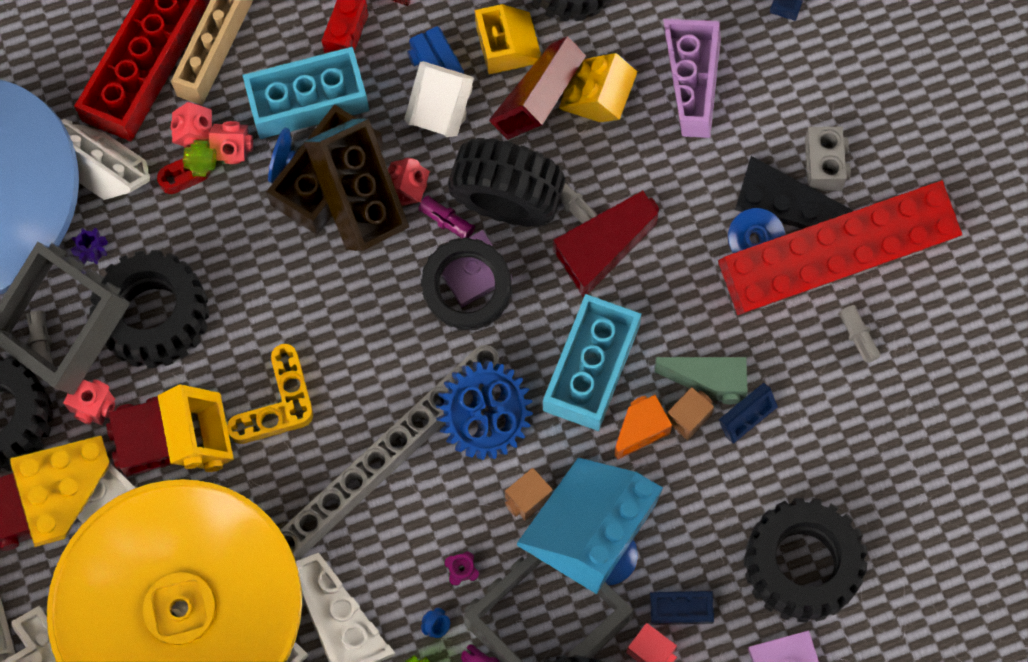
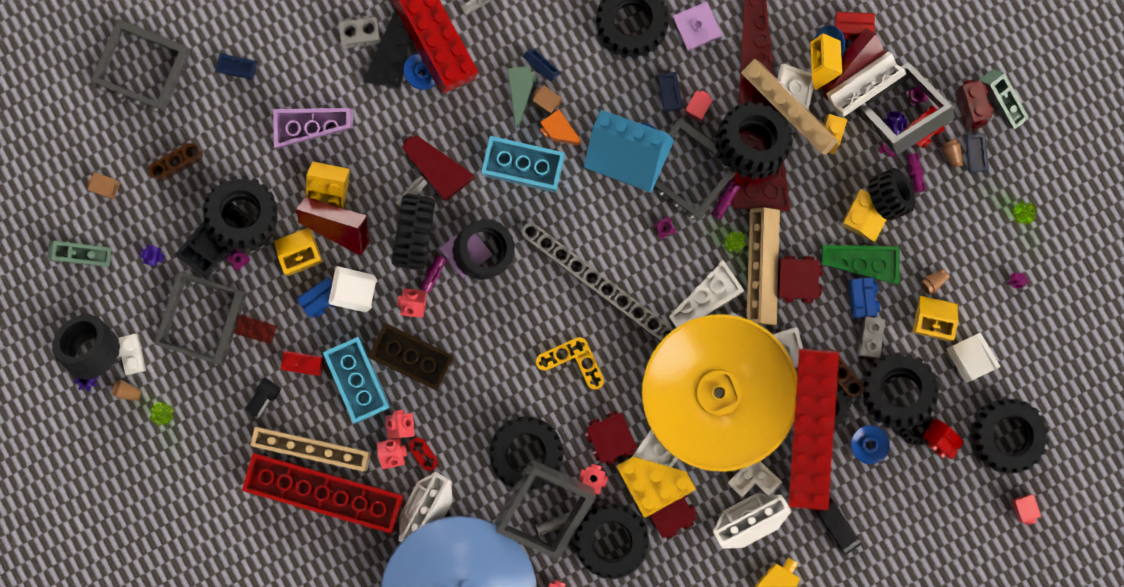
camera: 95 degrees left, 15 degrees up
(86, 238) = (486, 500): dark purple gear -> none
(176, 412) = (604, 405): yellow window -> none
(199, 158) = (416, 441): clear neon green gear -> none
(281, 154) = (407, 385): blue dish -> none
(356, 184) = (427, 329): dark brown brick -> none
(435, 623) = (701, 238): blue plate -> none
(459, 416) = (565, 226): blue gear -> none
(527, 494) = (613, 193): medium nougat brick -> none

